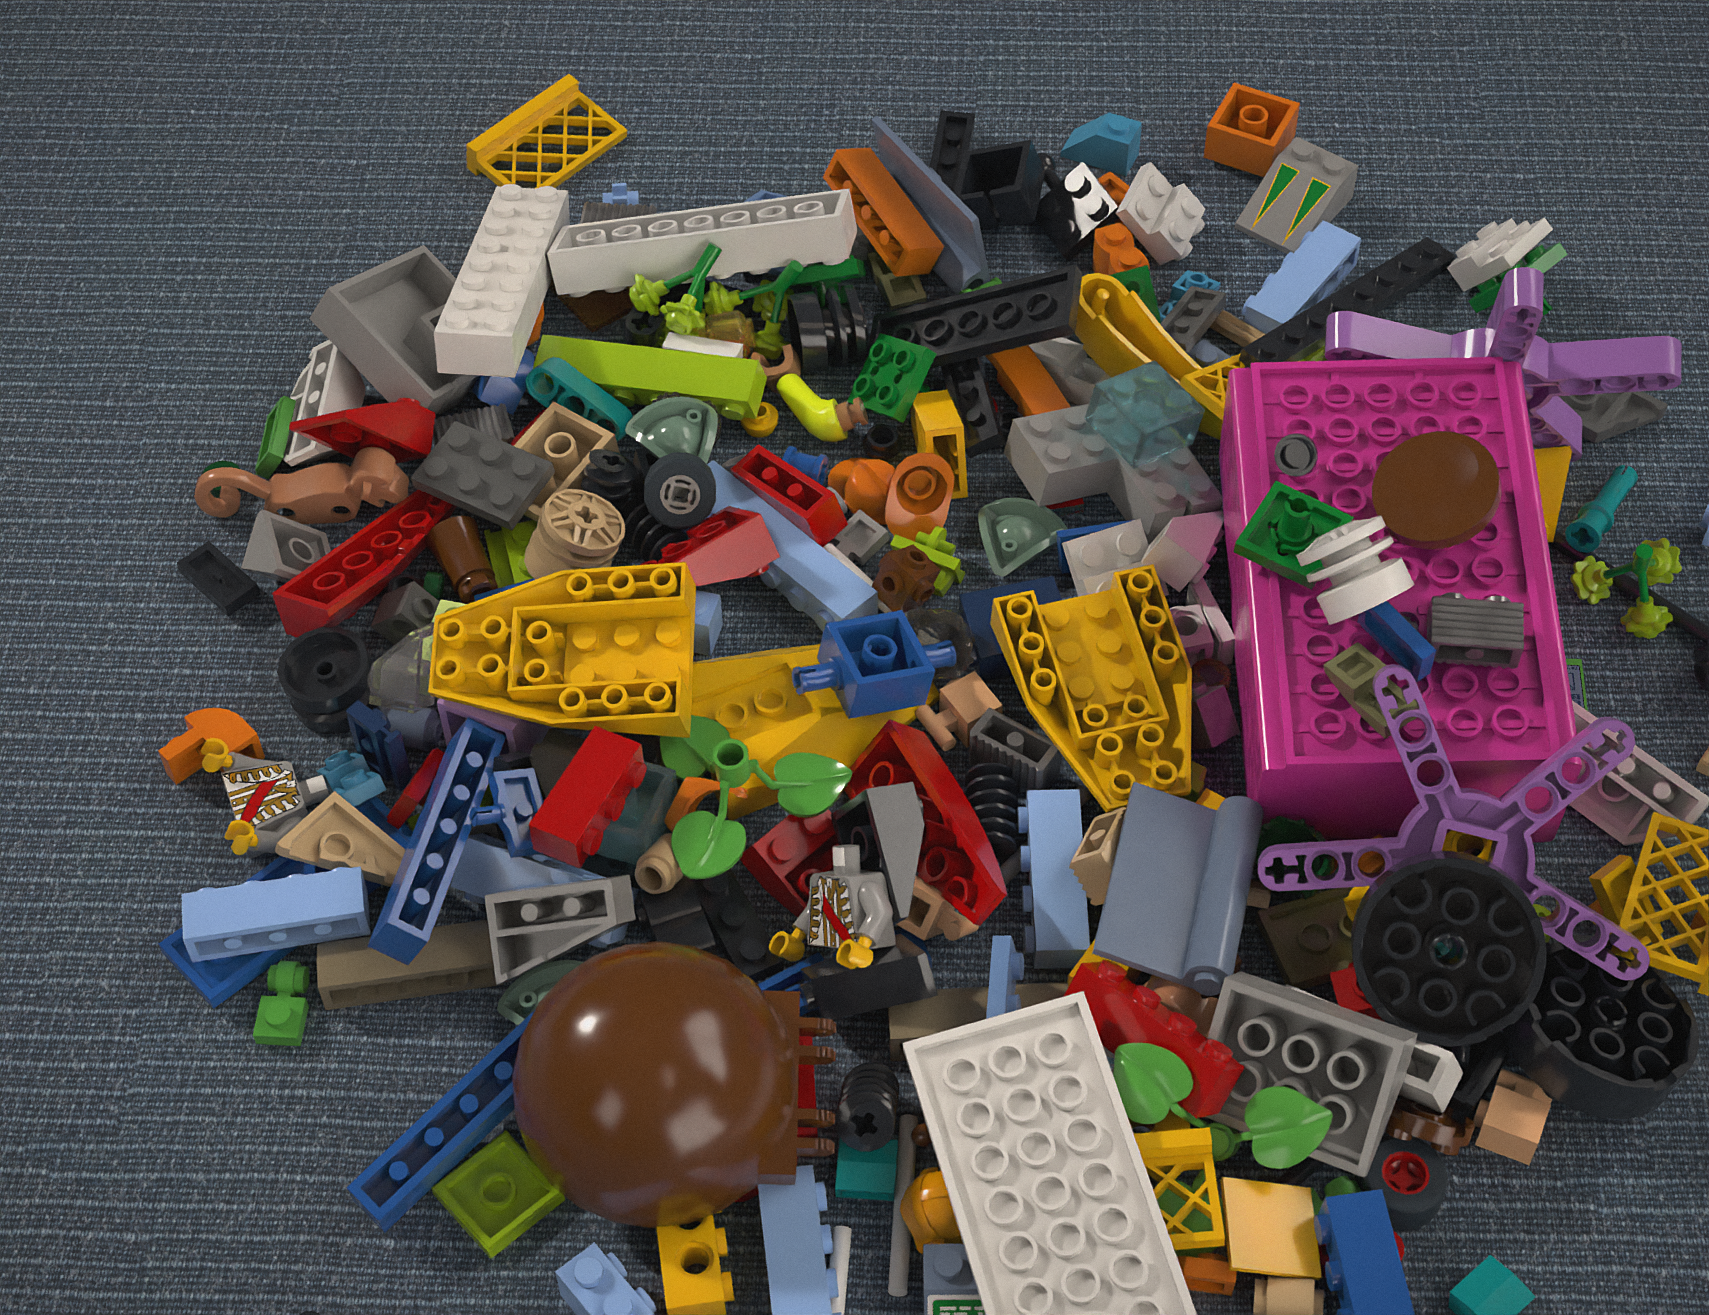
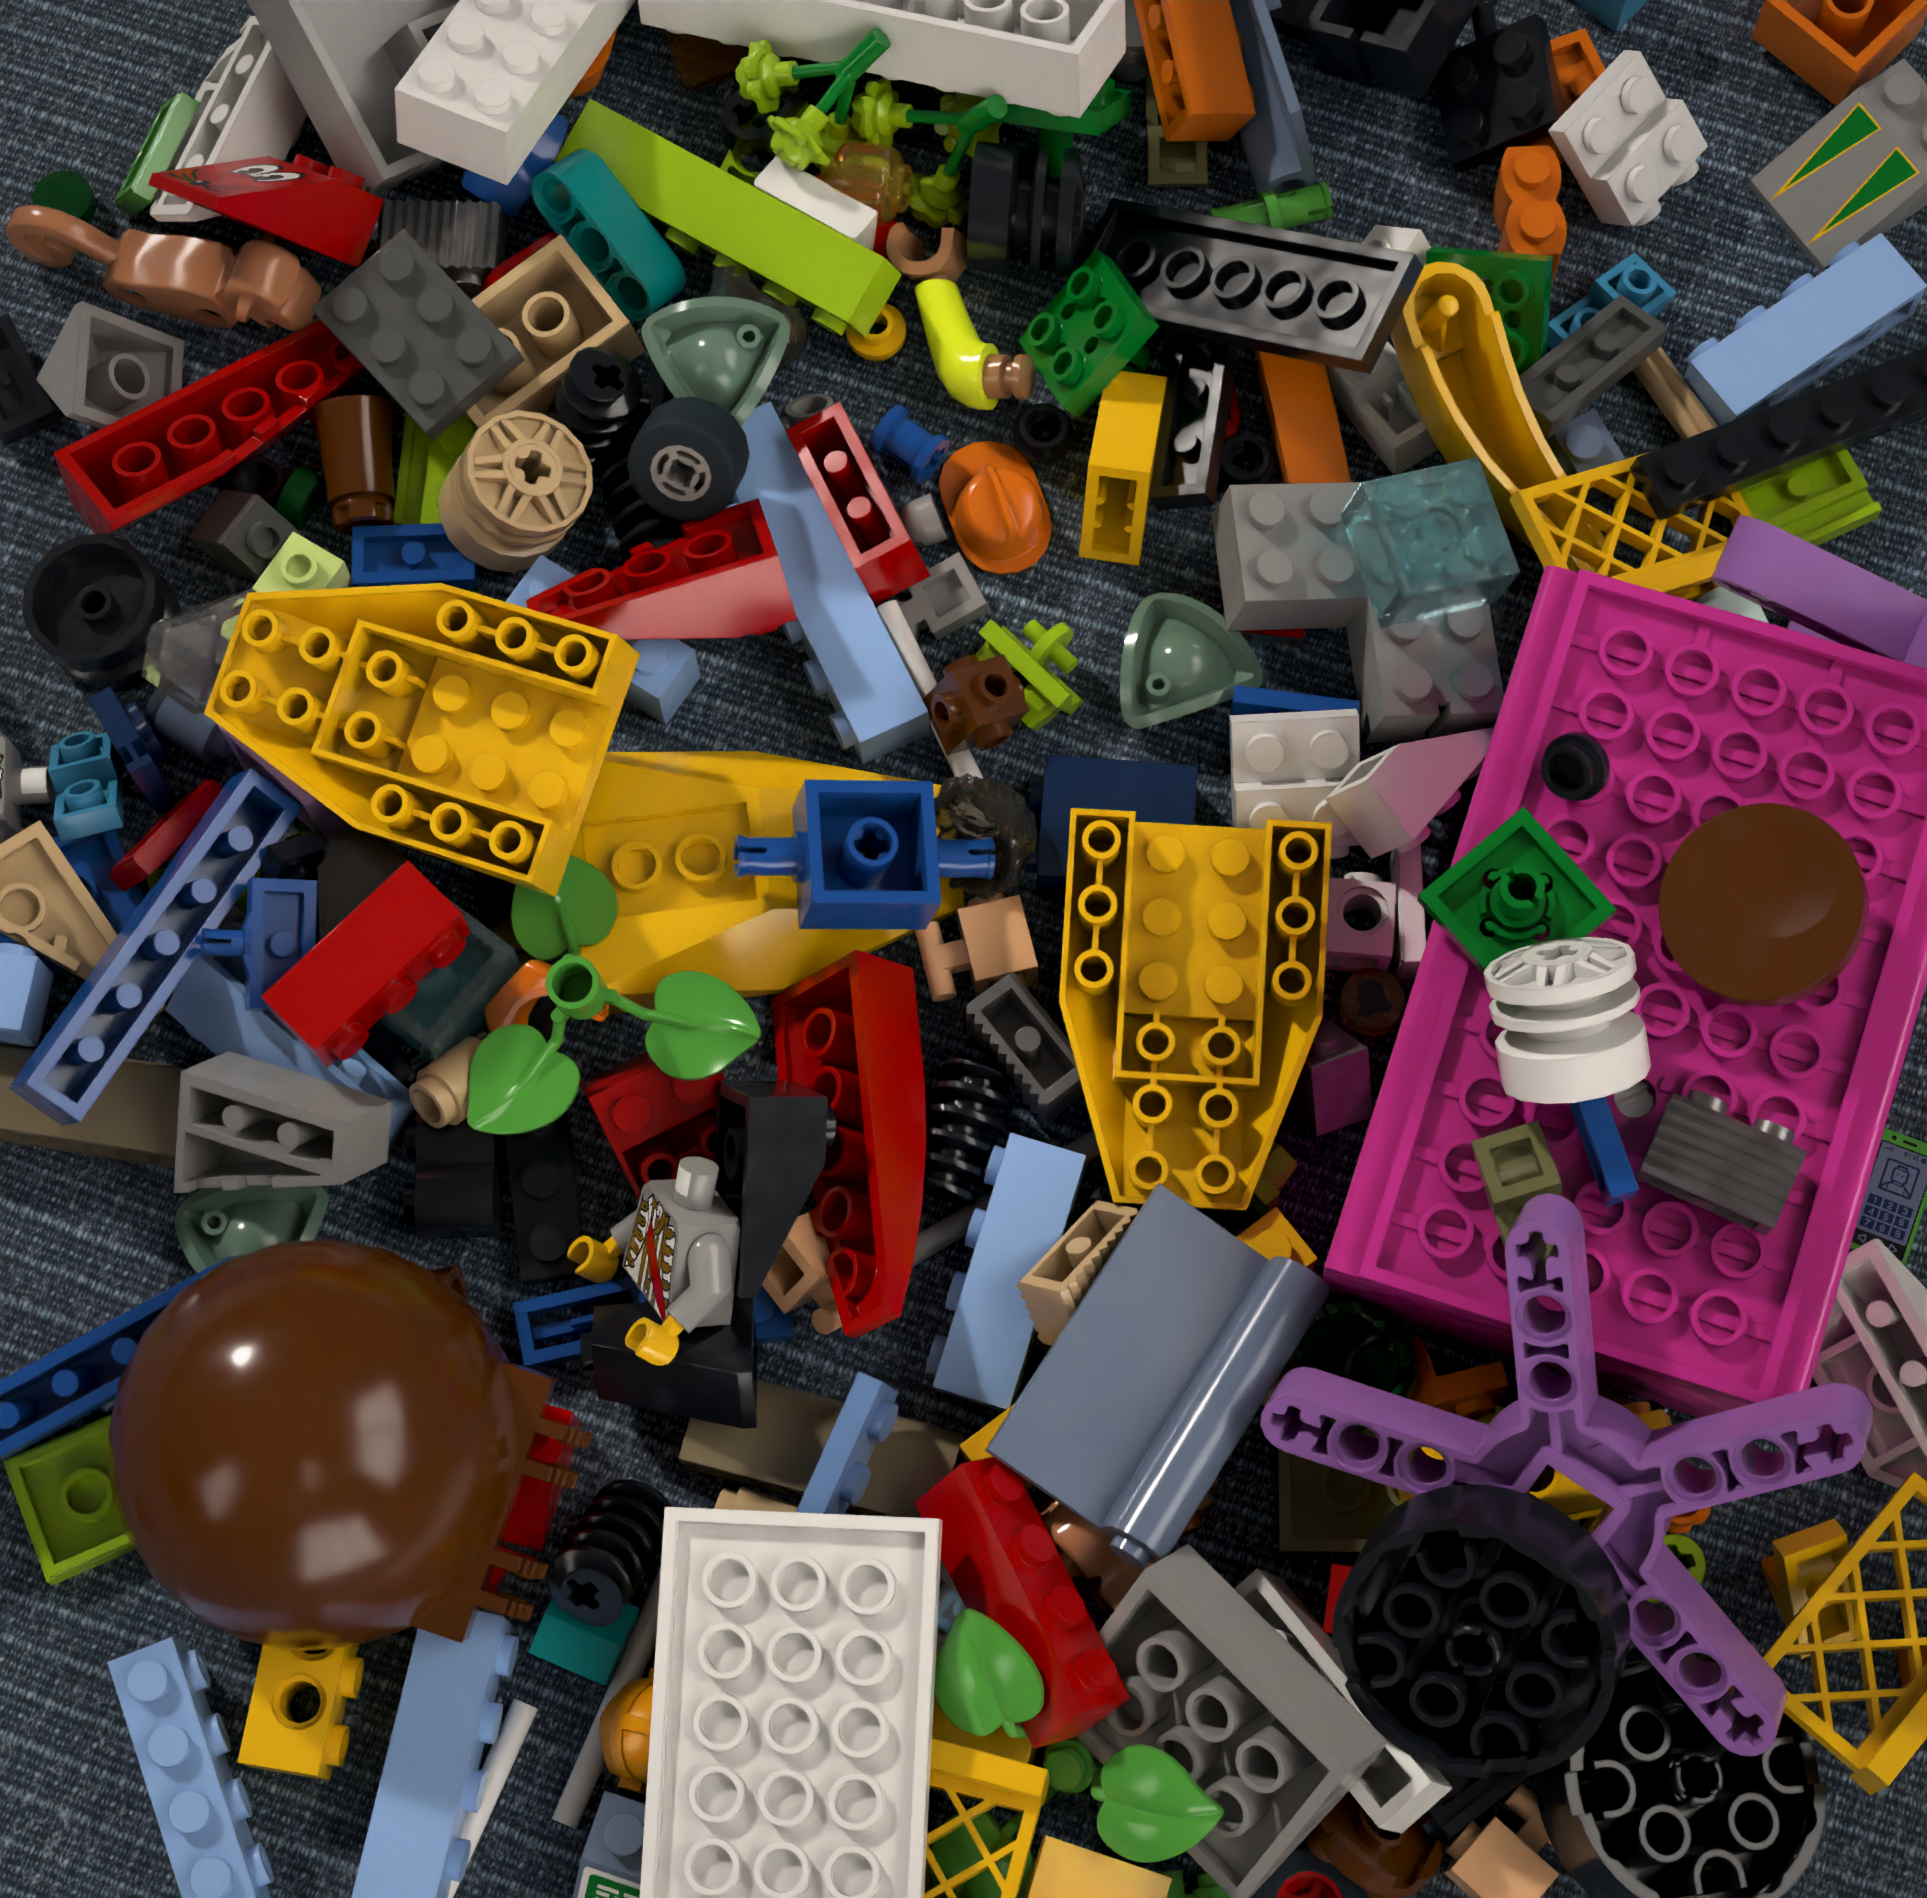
camera: 20 degrees right, 20 degrees up
(919, 495) = (1051, 561): orange piece -> none

